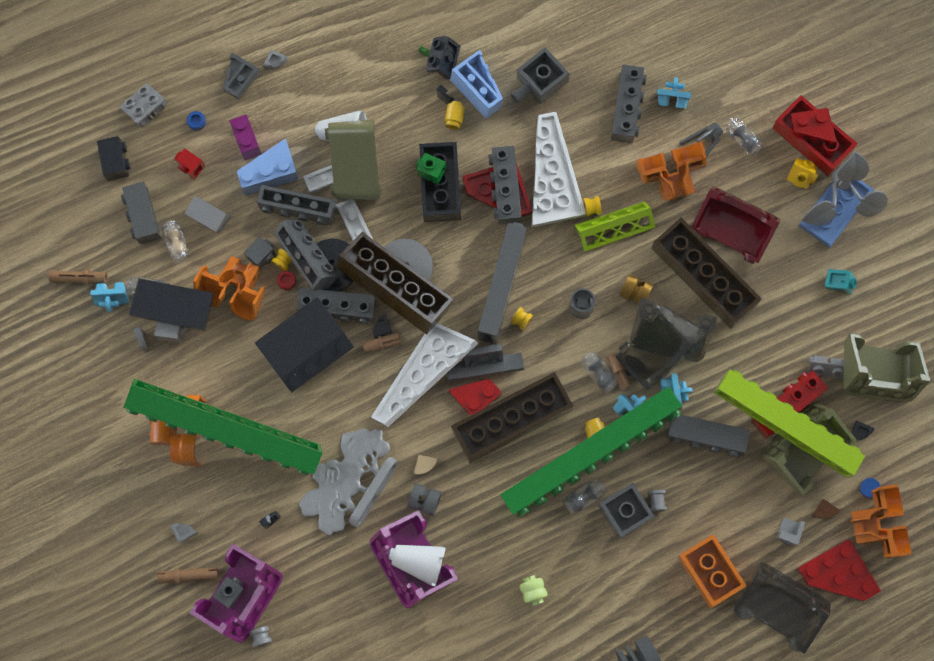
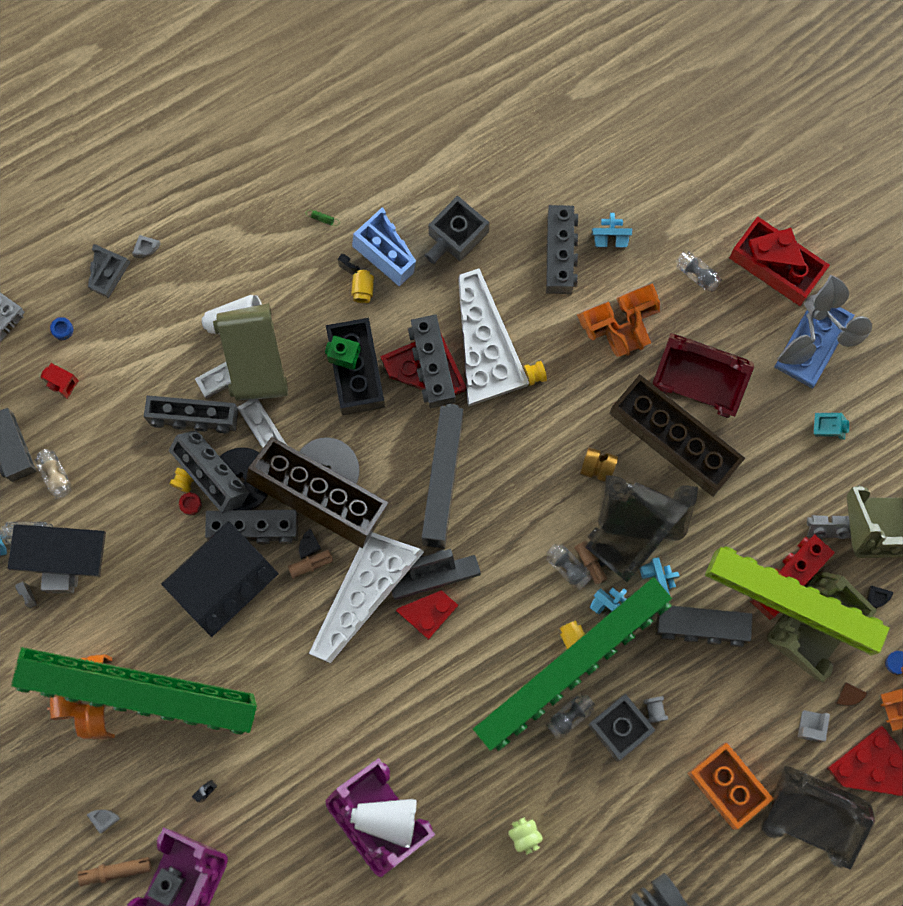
camera: 10 degrees left, 0 degrees up
(207, 214) = (87, 437): light grey hinge -> none
(245, 137) = (121, 341): magenta brick -> none
(245, 301) = (143, 535): orange piece -> none
(260, 252) = (155, 475): dark grey brick -> none
(268, 169) = (153, 376): light blue wedge -> none
(342, 480) = (284, 733): light grey plant -> none
(424, 464) = (379, 702): tan tile -> none
(431, 500) = (392, 745): dark grey wheel -> none
(443, 56) = (340, 219): black bracket -> none
(512, 417) = (474, 633): dark brown brick -> none
(521, 319) = (470, 515): yellow wheel -> none
(582, 303) = (538, 488): dark grey wheel -> none
(614, 219) = (564, 385): lime fence -> none
(709, 133) = (659, 273): dark grey plant -> none
(802, 173) = (771, 306): yellow brick -> none

